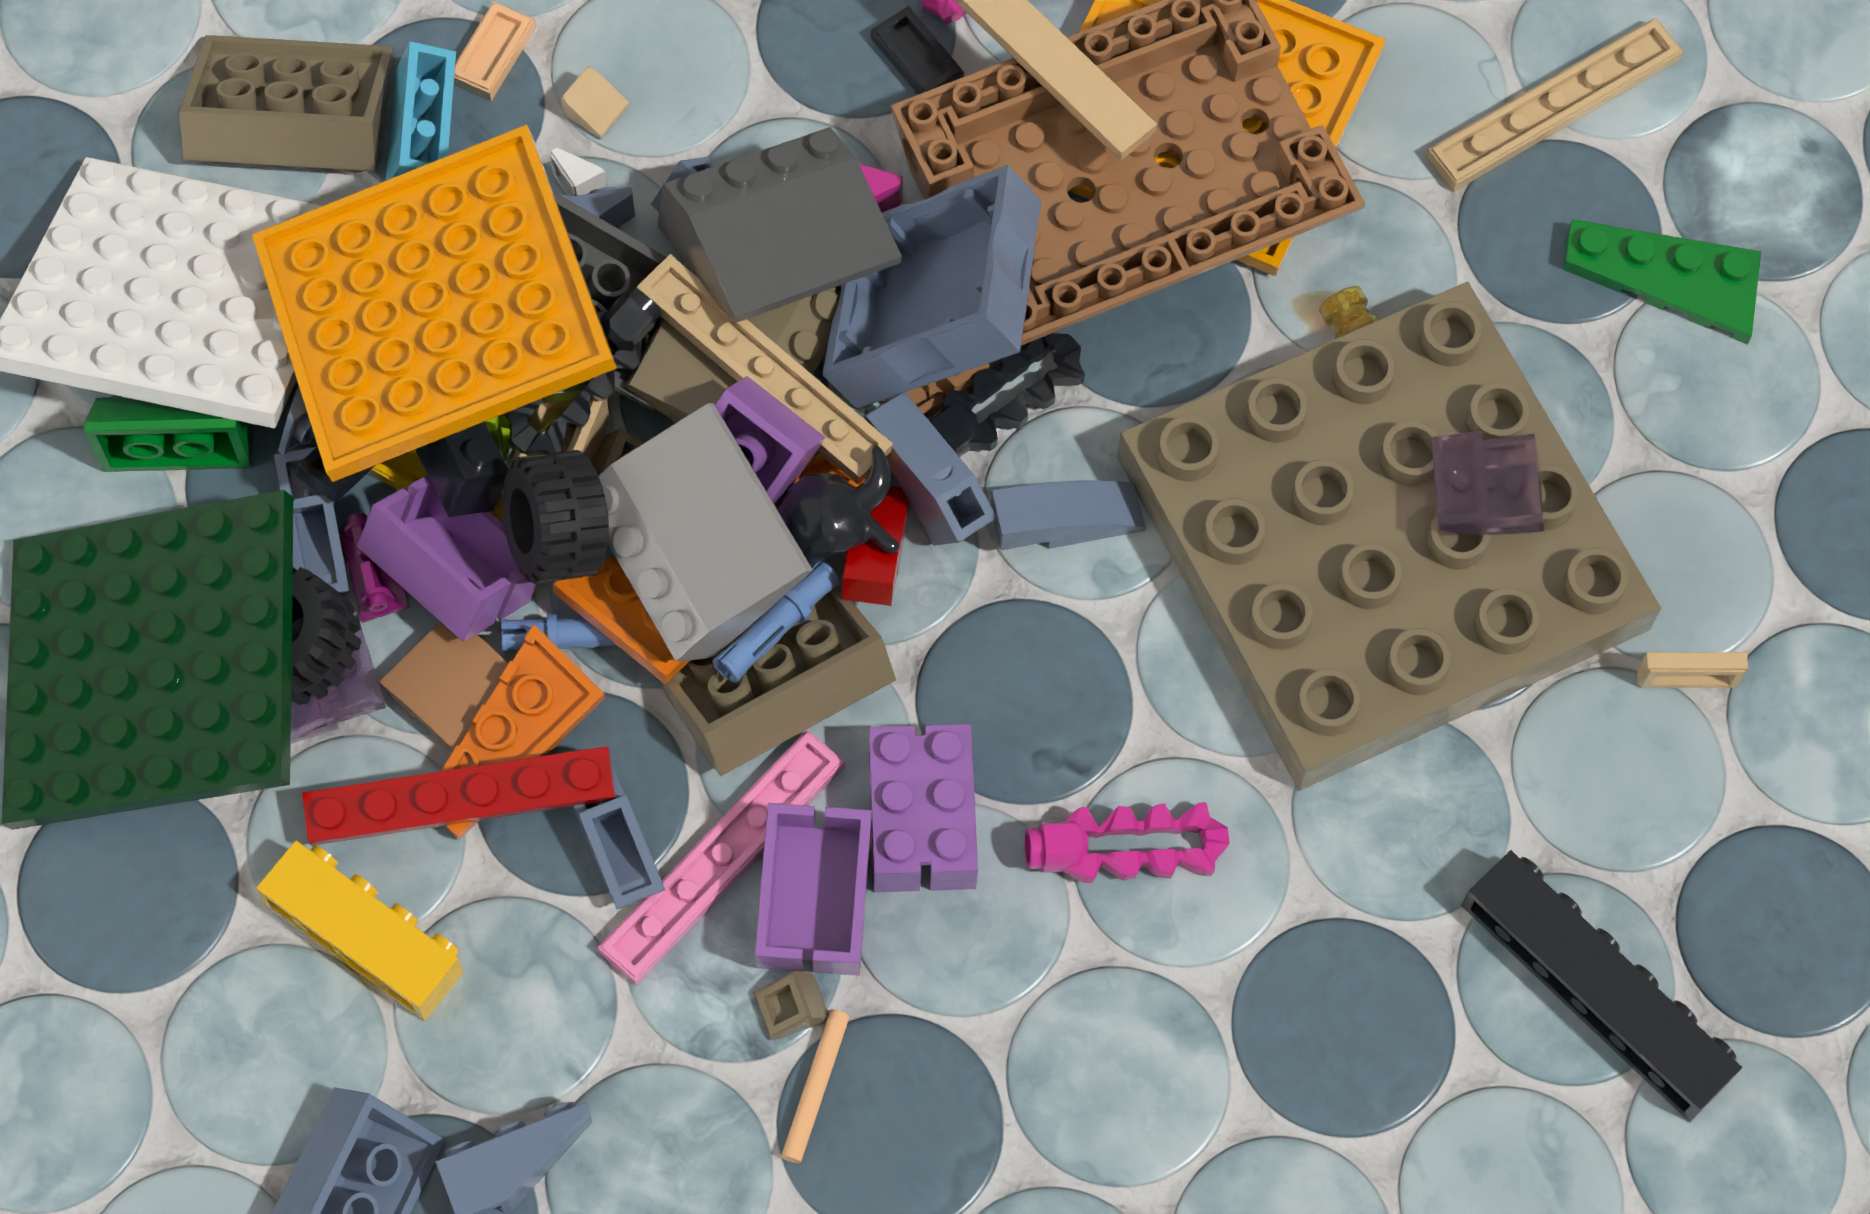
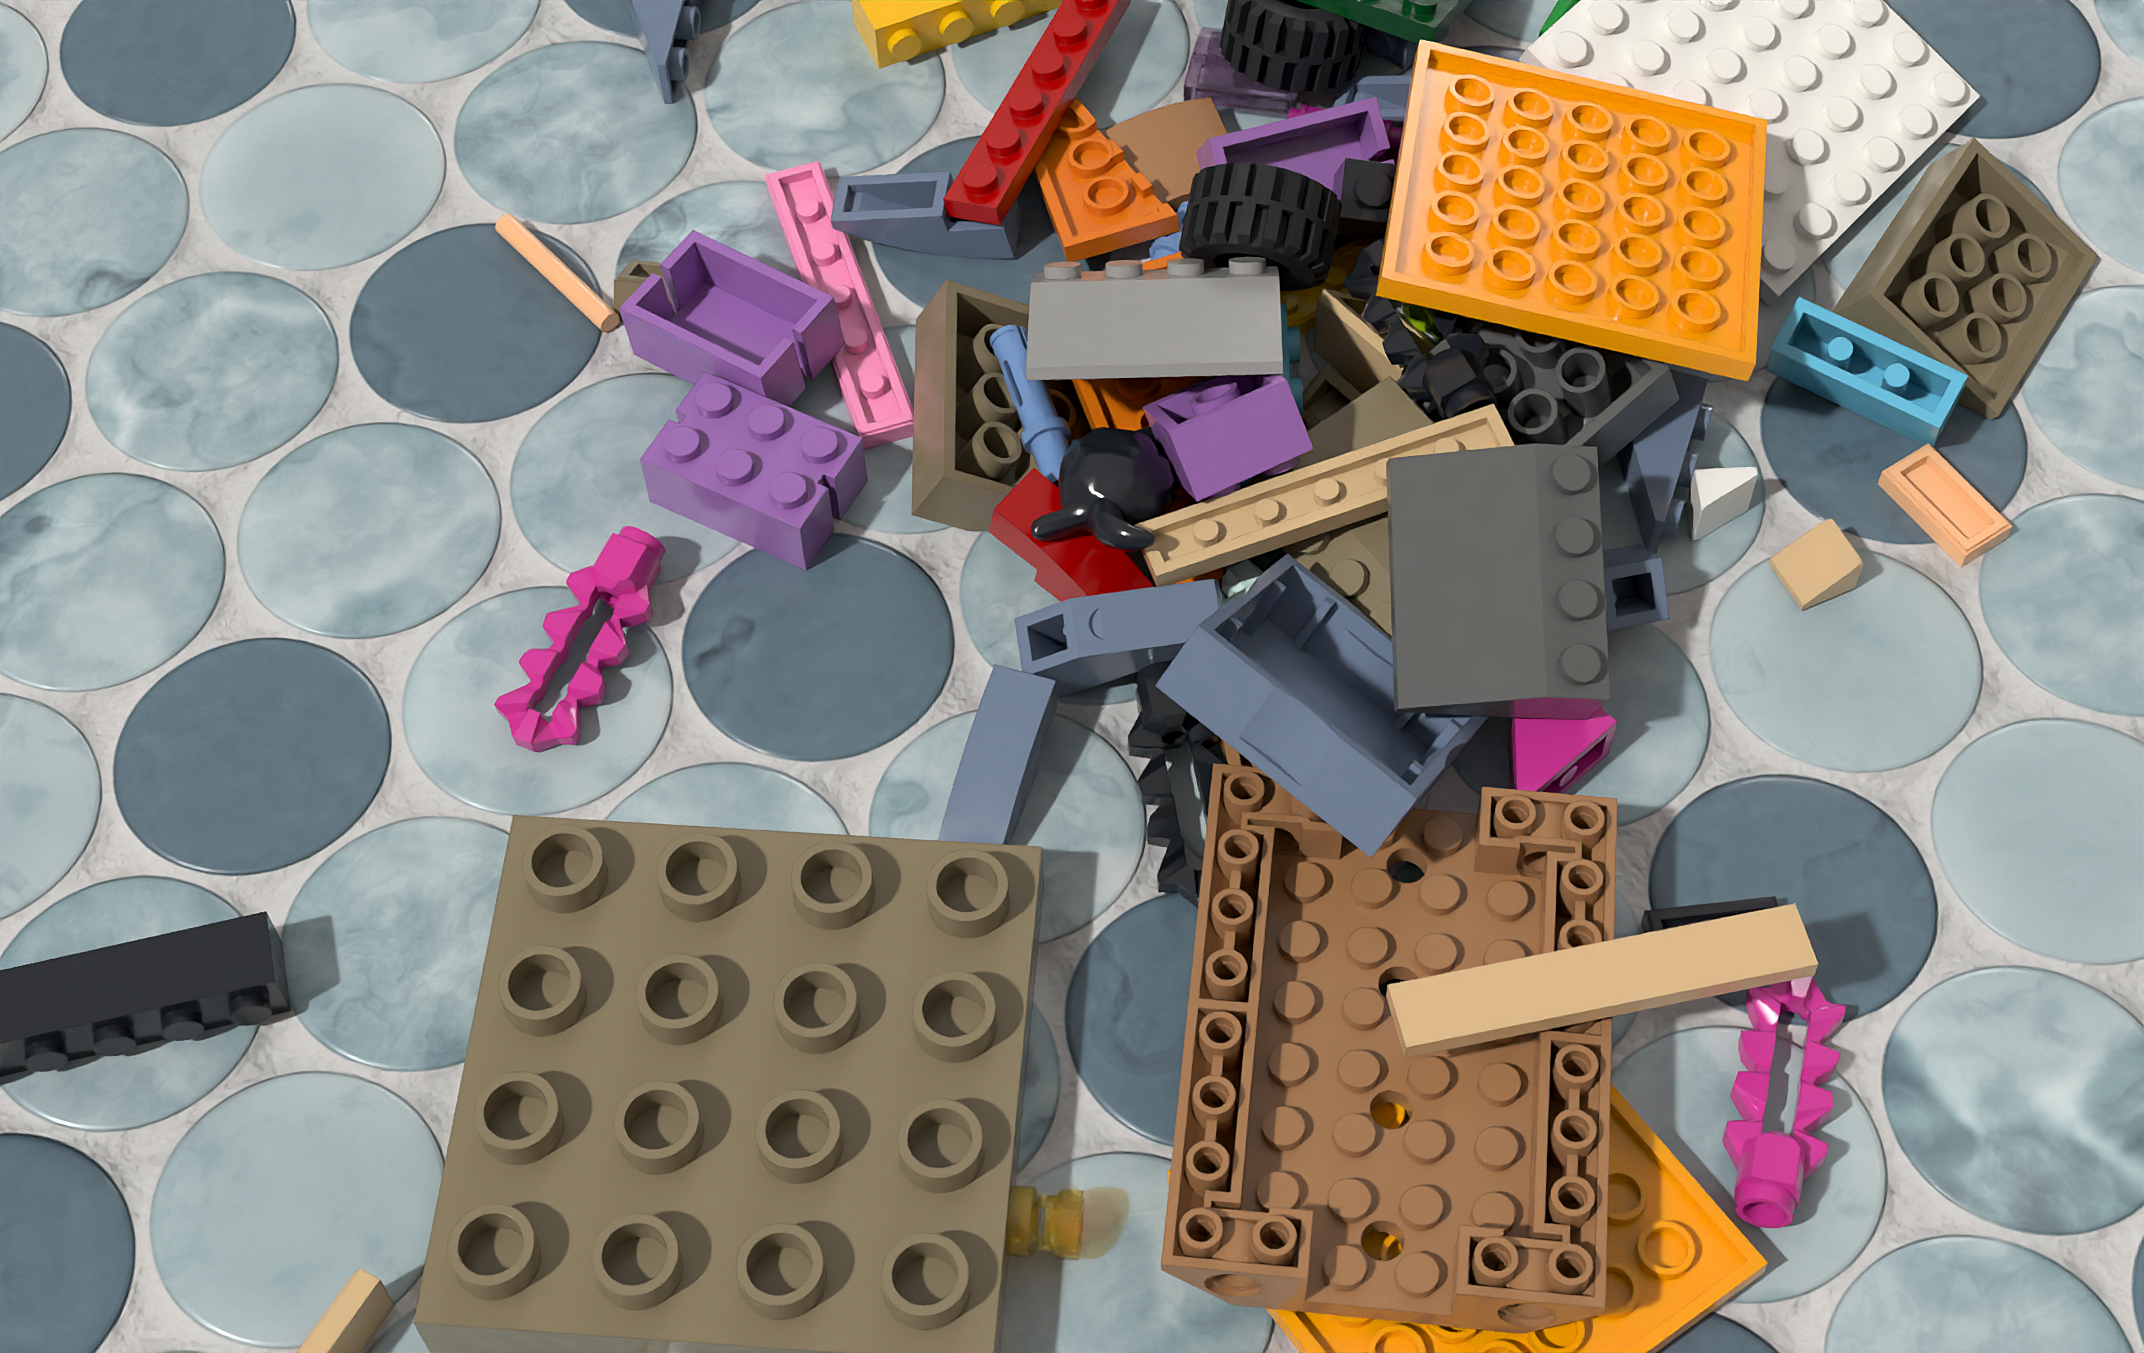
camera: 125 degrees right, 10 degrees down
(1487, 484) = (686, 1177): slope -> none

